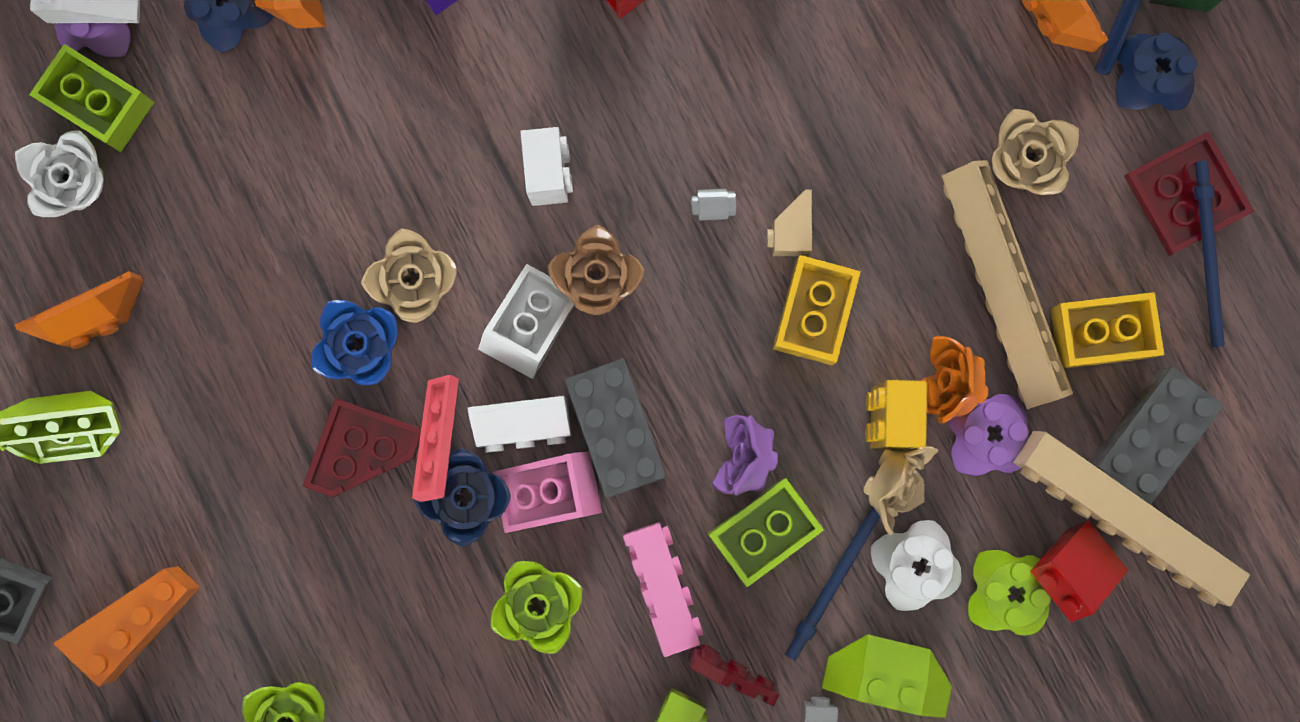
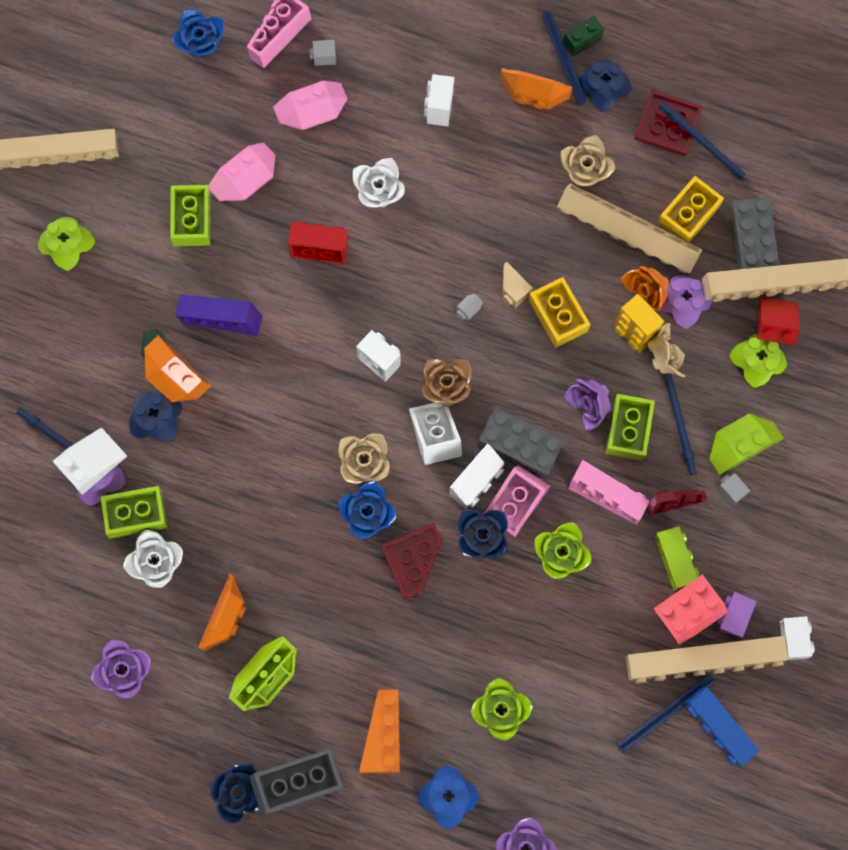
camera: 50 degrees left, 10 degrees down
(435, 439) = (445, 518): coral plate -> none
(894, 558) = (696, 389): white brick -> none

